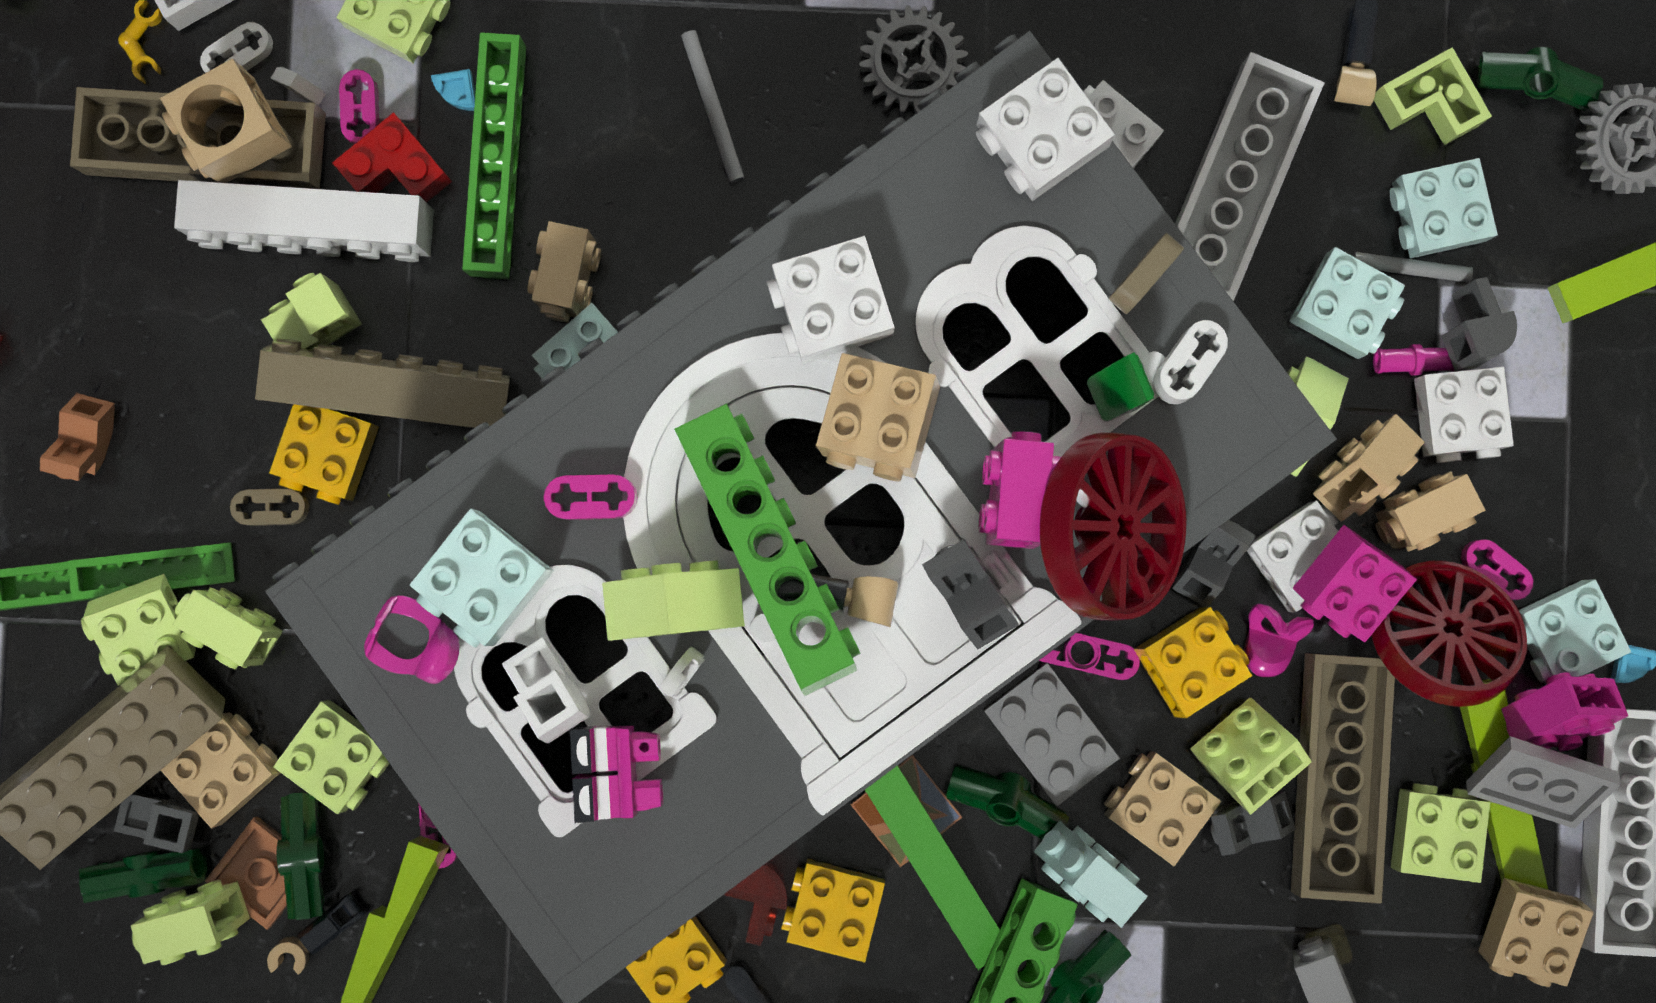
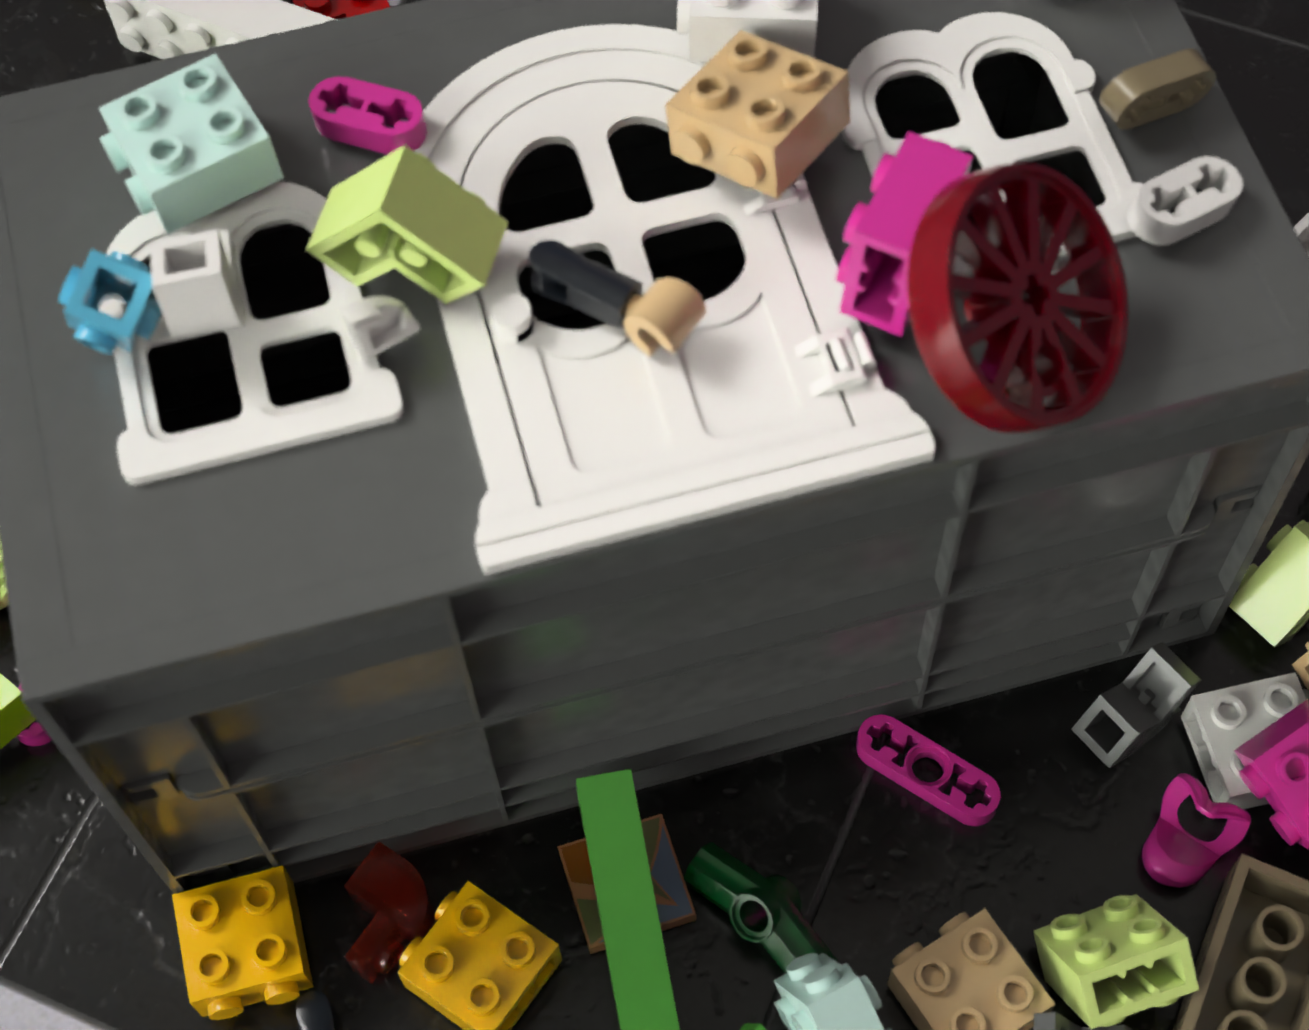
camera: 20 degrees right, 25 degrees down
(437, 658) = (82, 207): dark pink piece -> none
(505, 741) = (105, 279): none -> medium azure brick
(612, 793) = (225, 406): dark pink hips -> none
(704, 443) = (553, 214): bright green brick -> none
(970, 593) = (795, 329): dark grey brick -> none
(1051, 734) = (852, 857): light grey plate -> none
(1120, 388) = (1096, 154): green slope -> none
(1194, 661) = (1072, 819): yellow brick -> none

